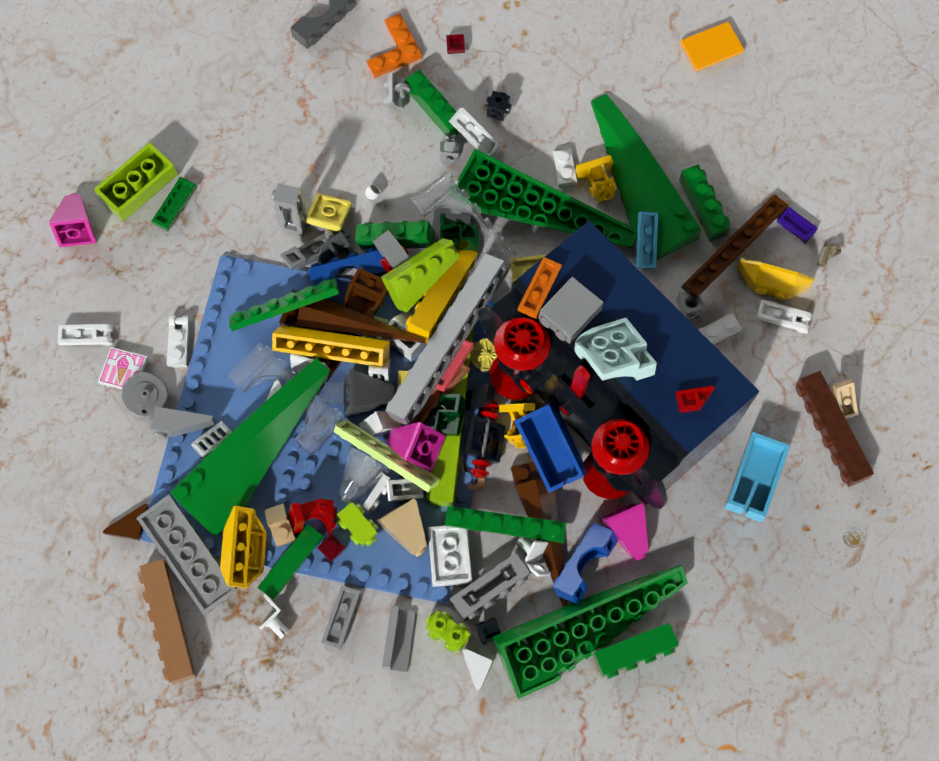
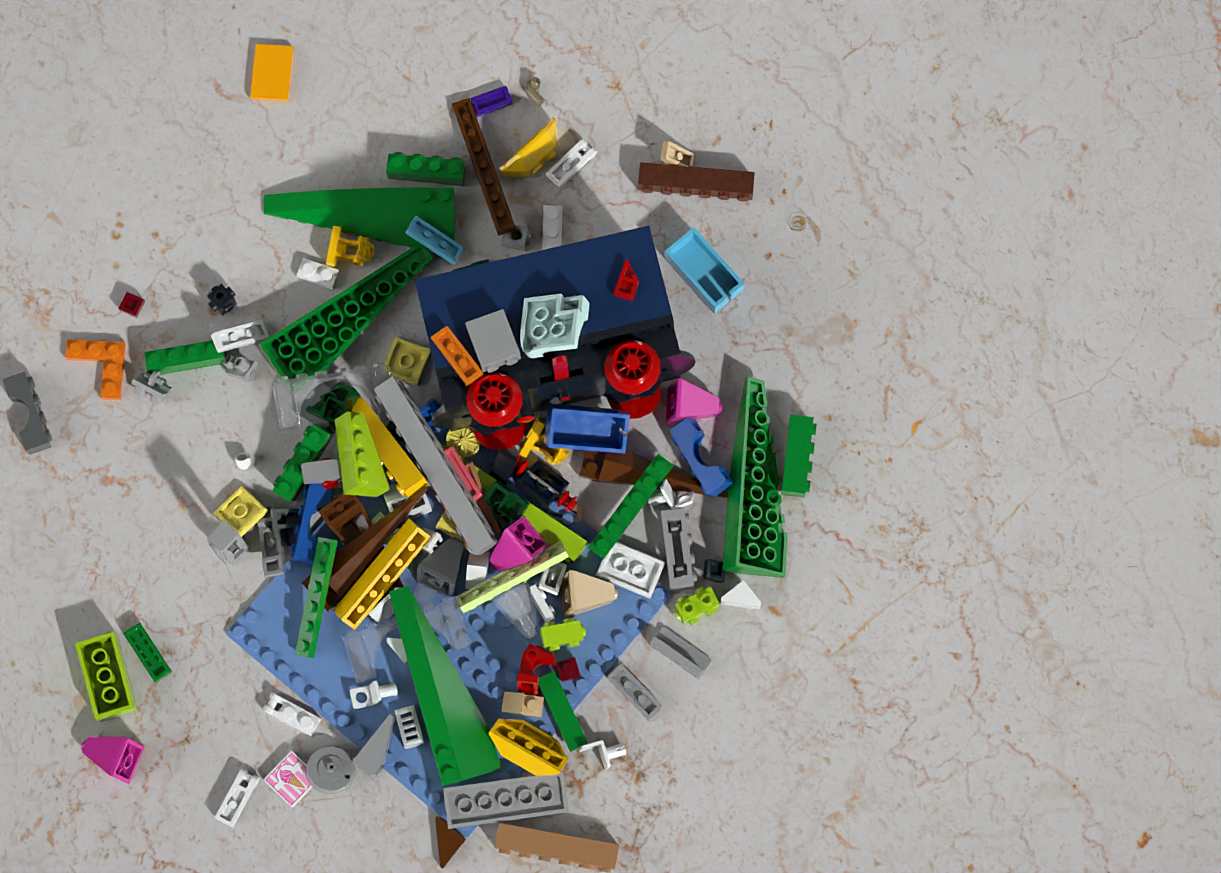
camera: 60 degrees left, 5 degrees up
(227, 396) = (374, 694): none -> white bracket

